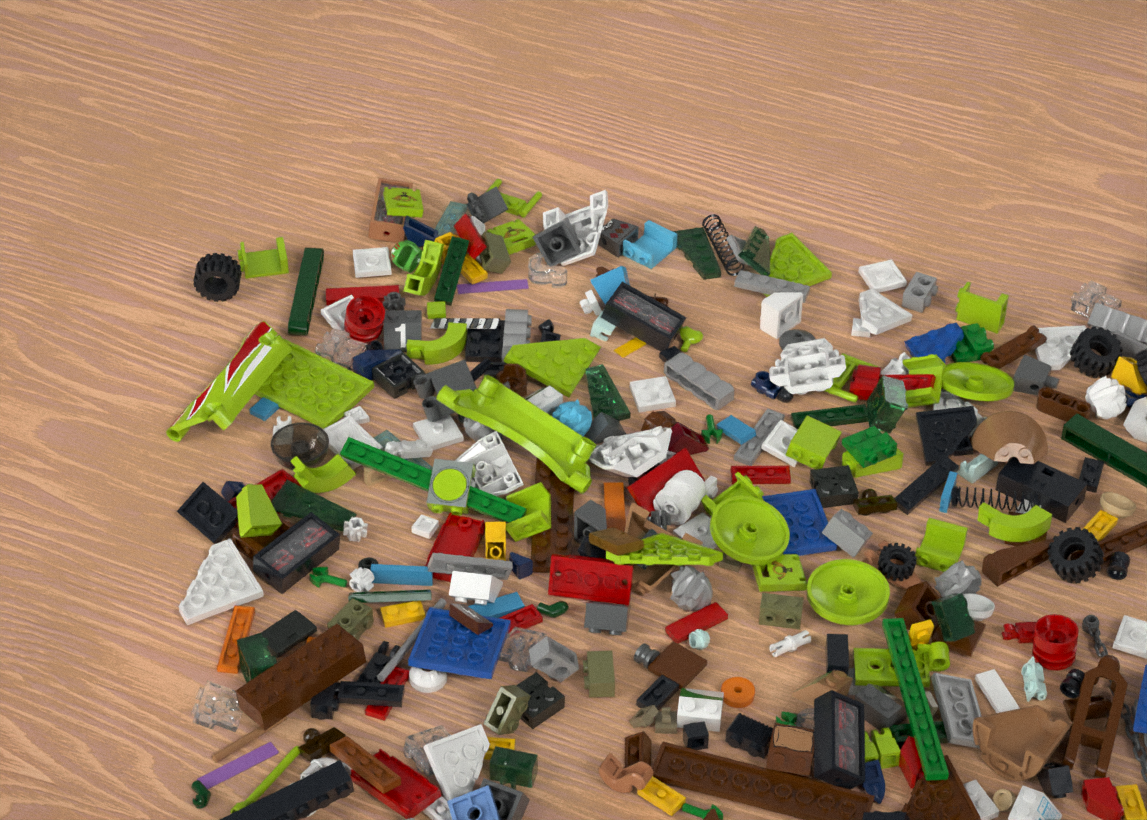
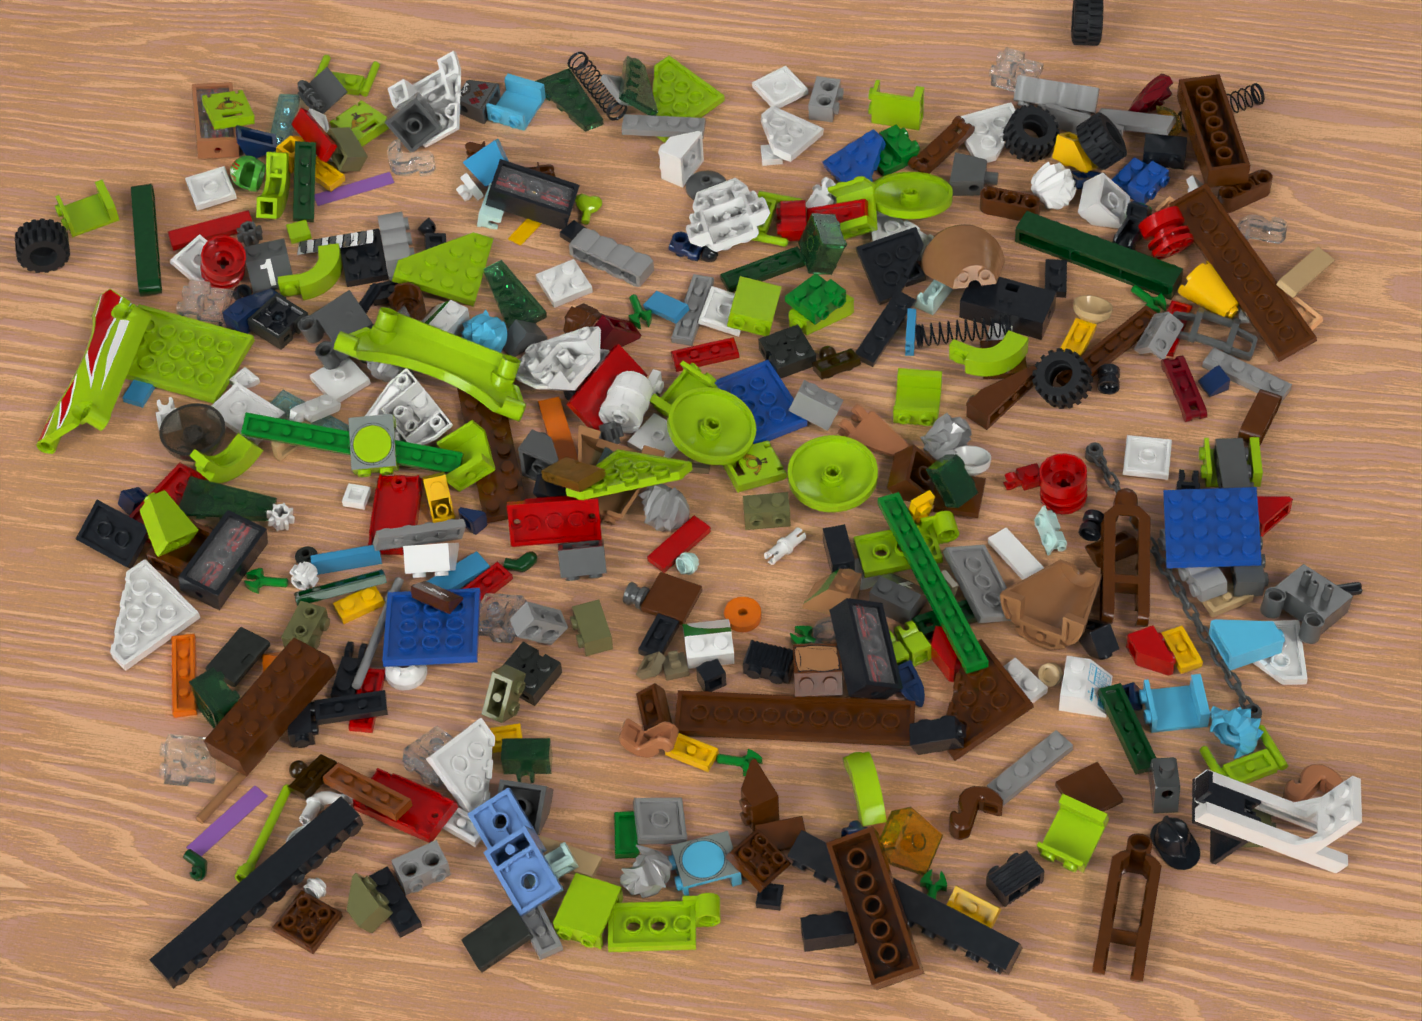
camera: 10 degrees left, 10 degrees up
(894, 570) = (876, 437): black tyre -> none

